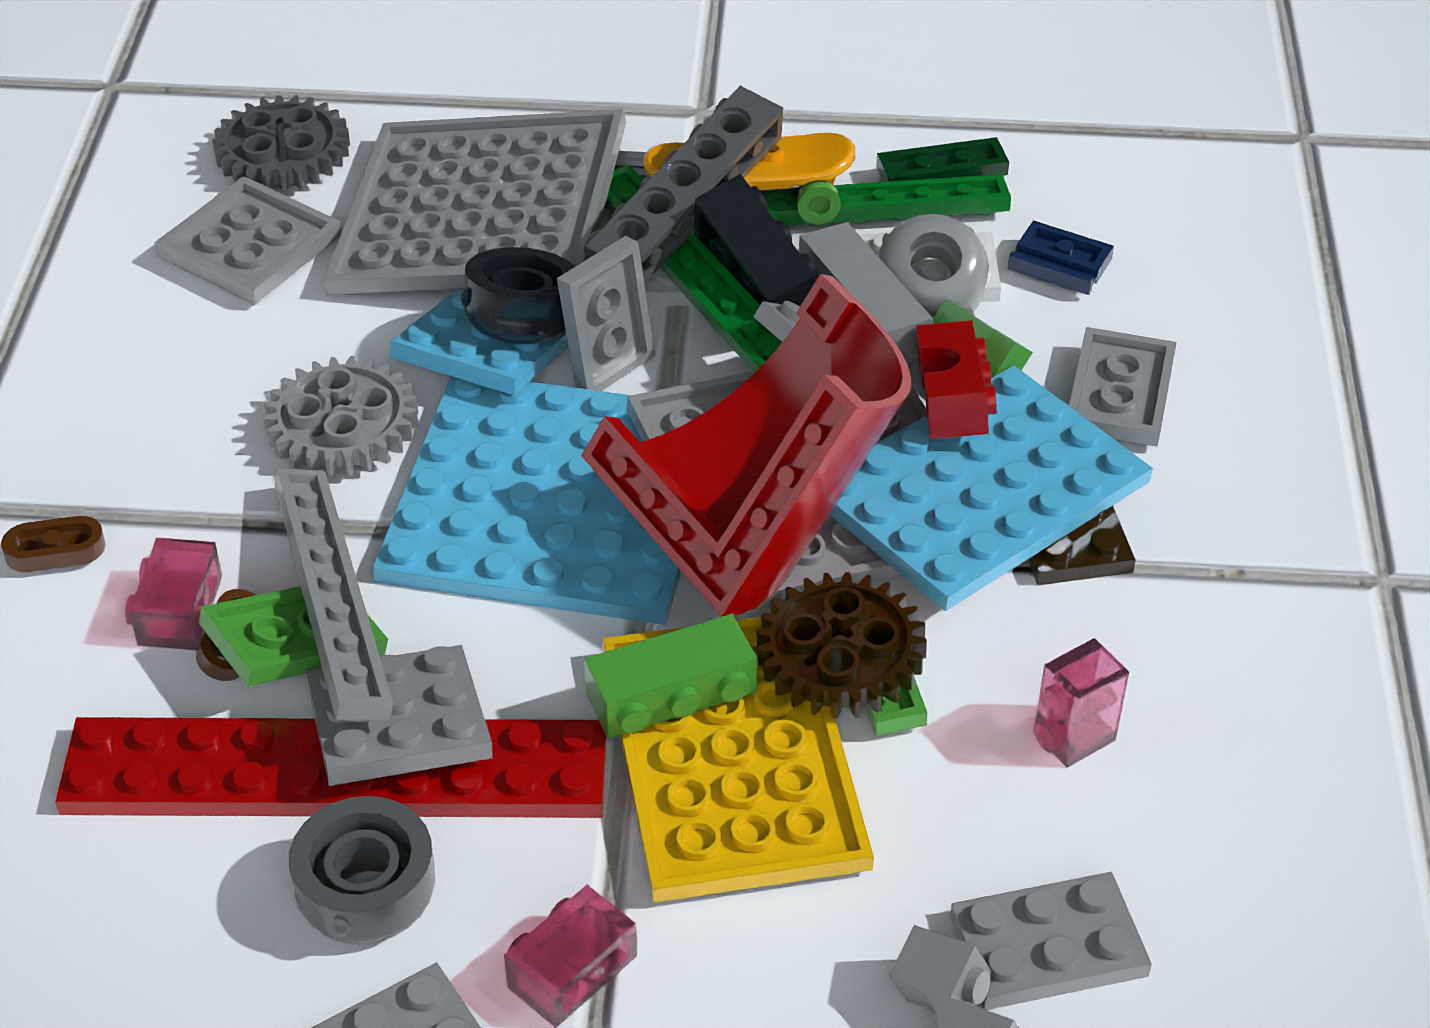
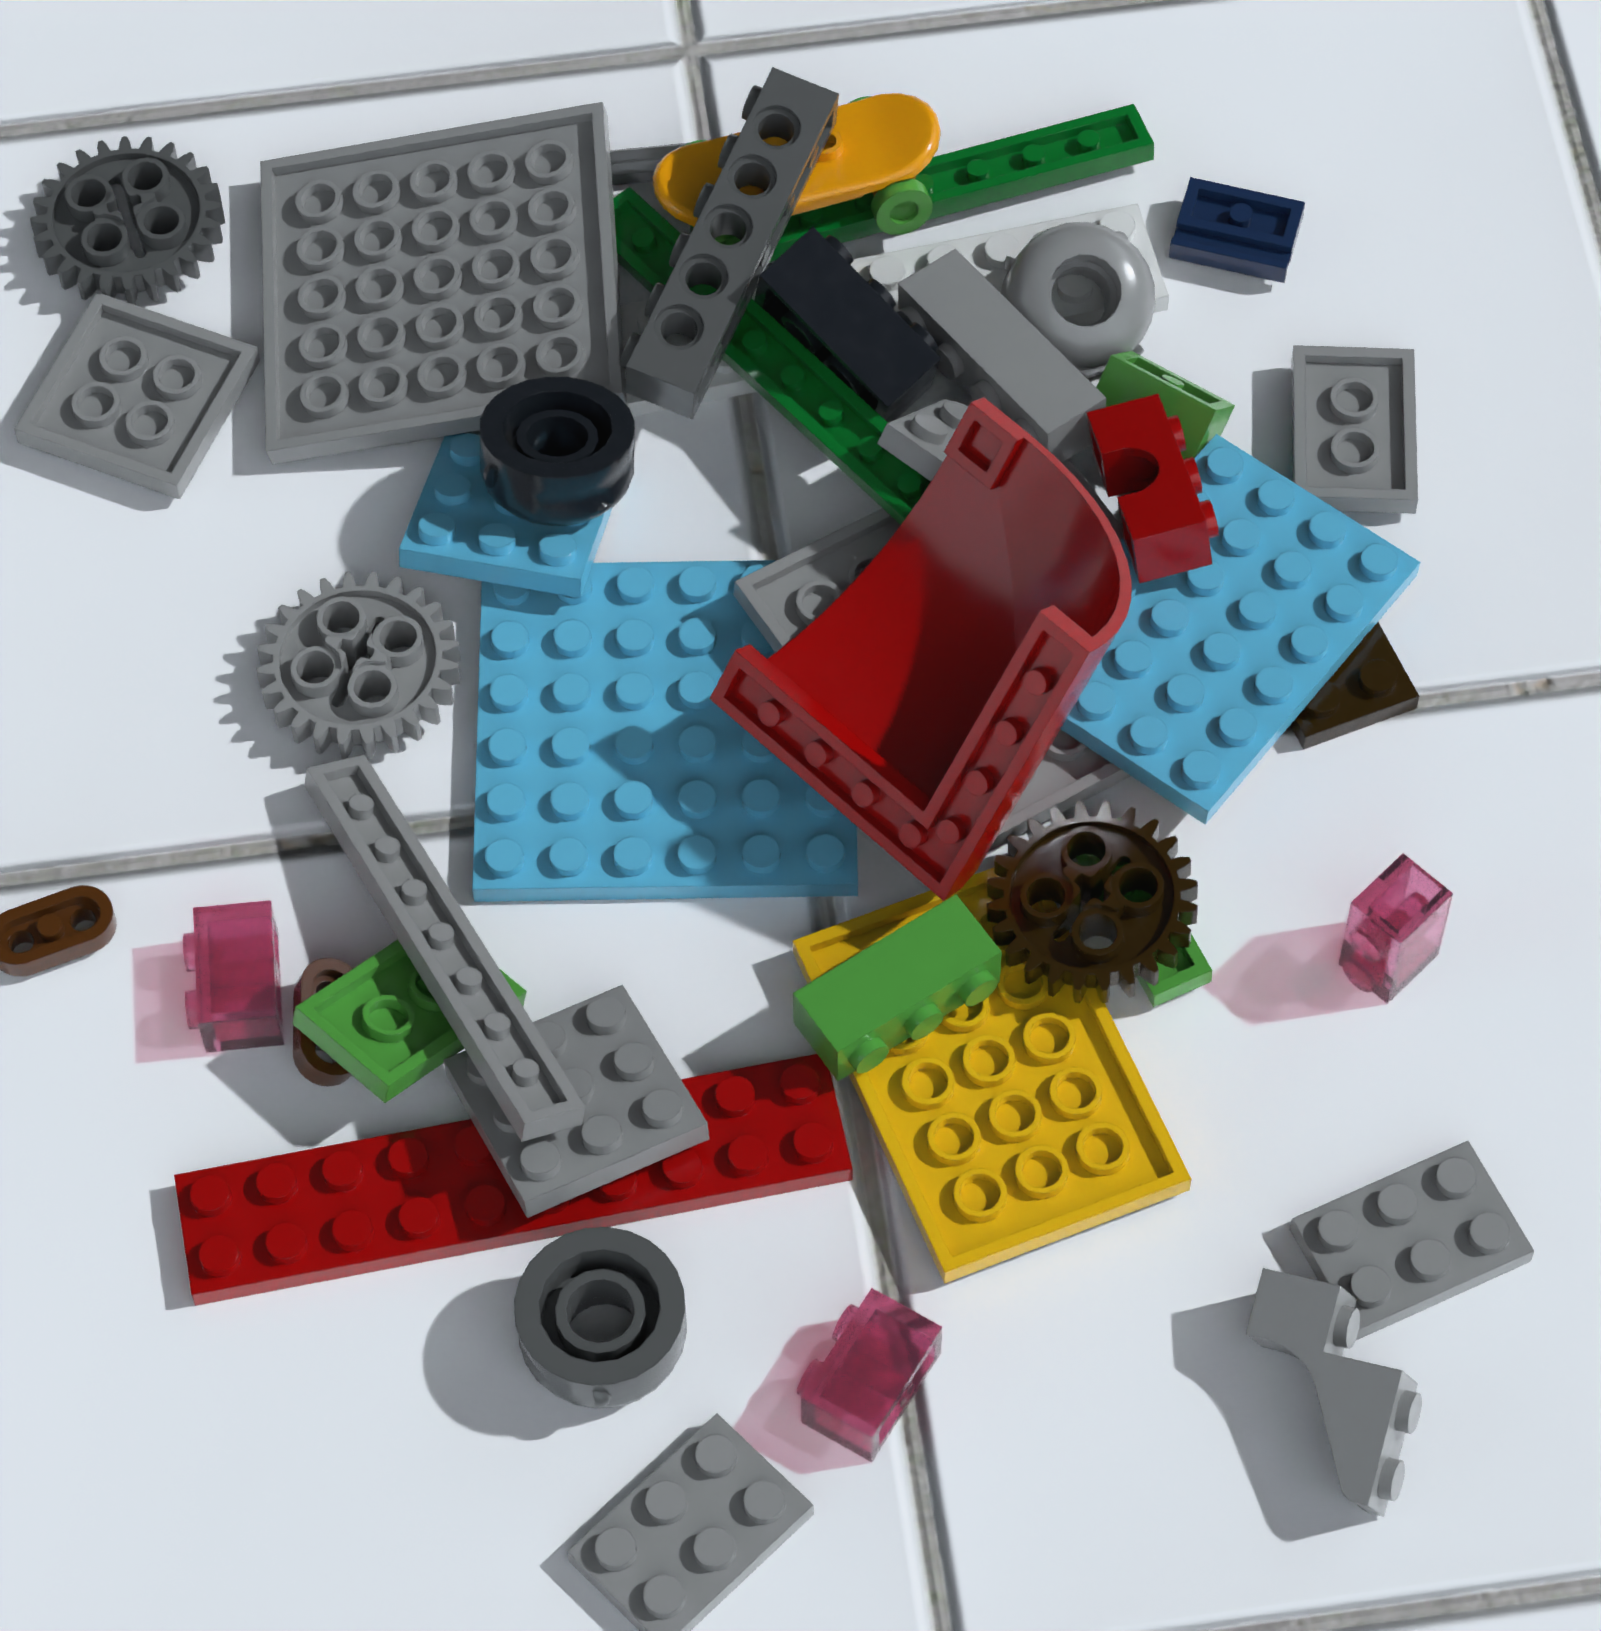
camera: 10 degrees left, 15 degrees up
(606, 315) = (677, 463): light grey plate -> none
(944, 161) = (1048, 93): dark green plate -> none

